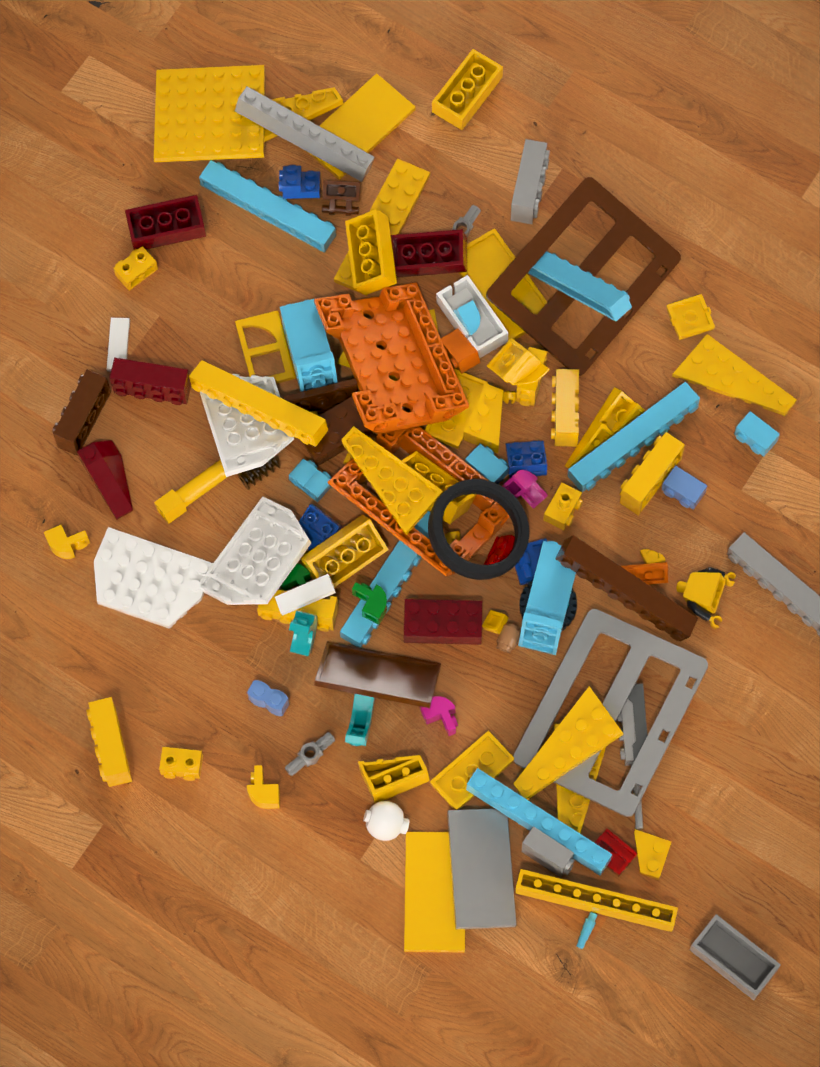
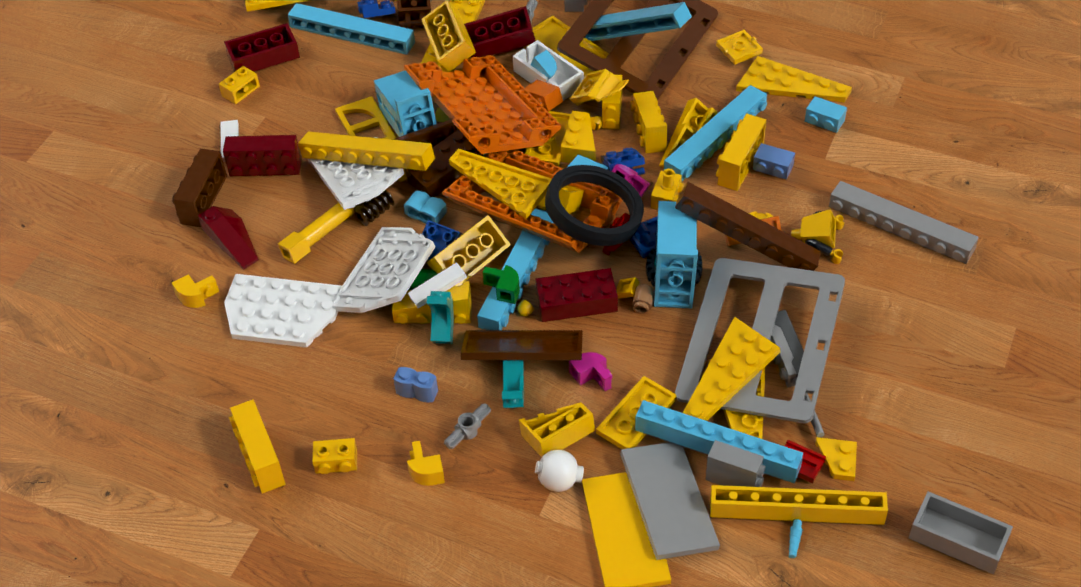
camera: 10 degrees left, 20 degrees down
(388, 626) = (525, 308): none -> yellow hinge

